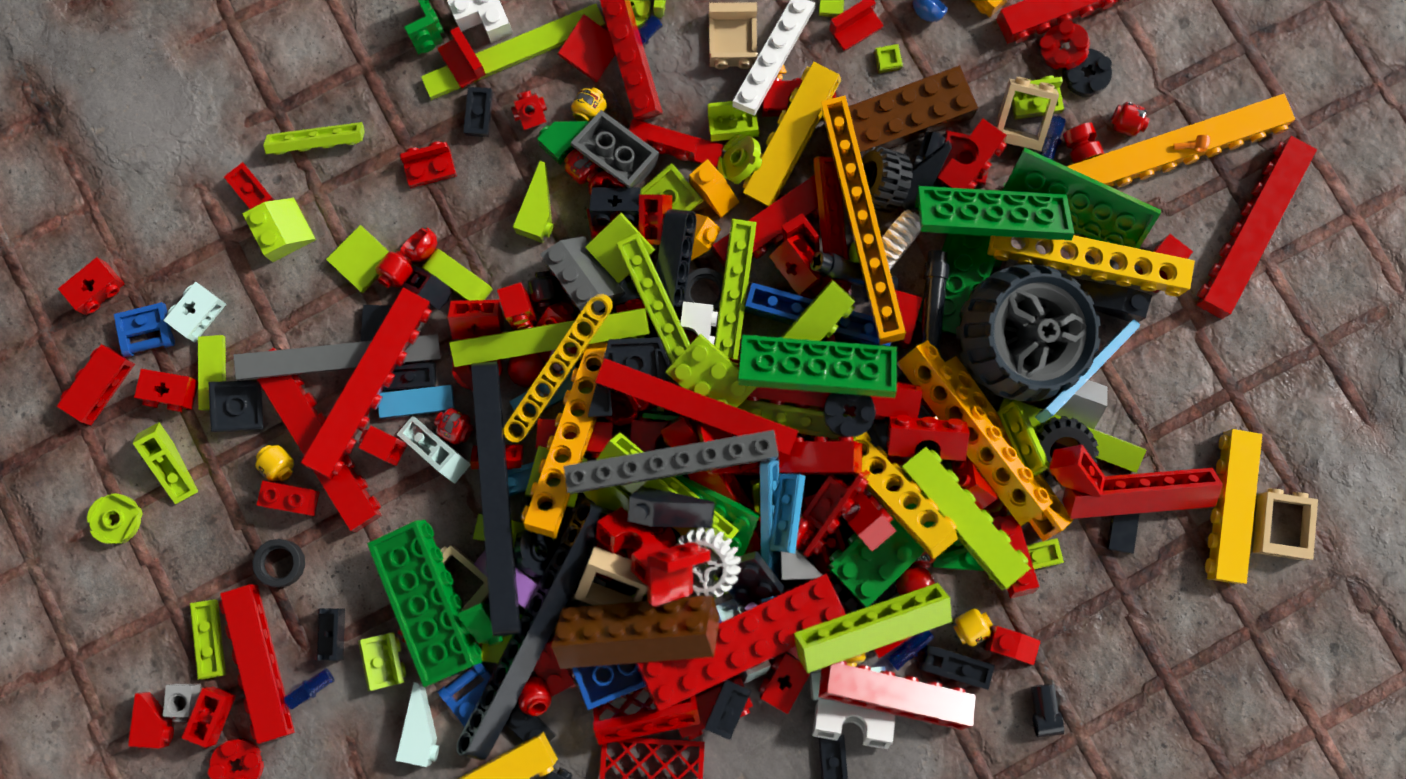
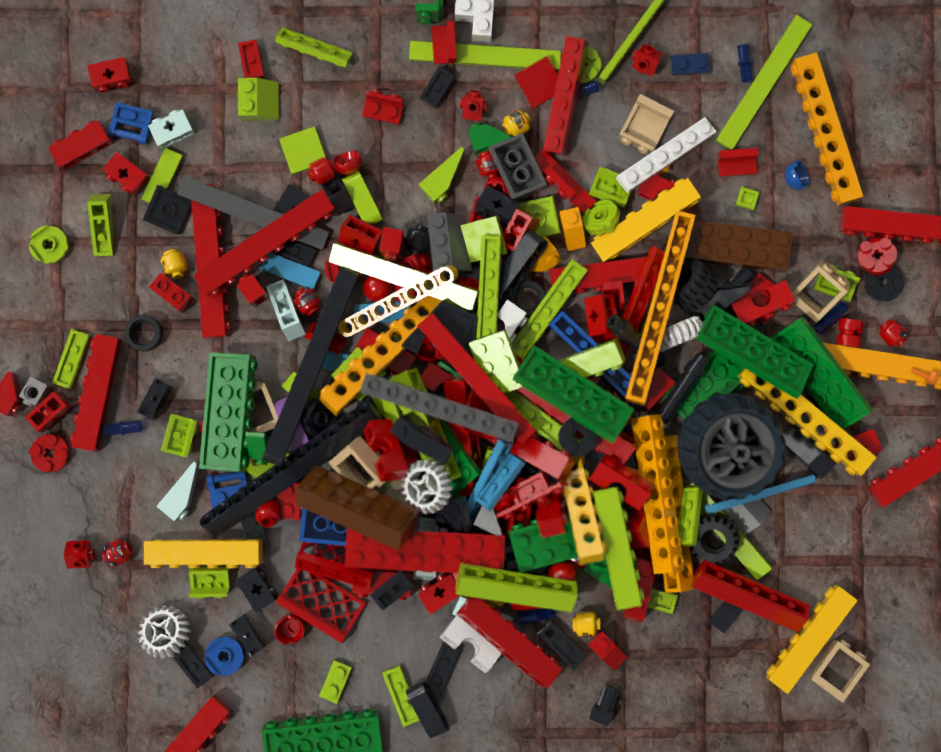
camera: 30 degrees right, 5 degrees up
(672, 572) = (401, 480): red bracket -> none
(1077, 470) = (712, 557): red slope -> none

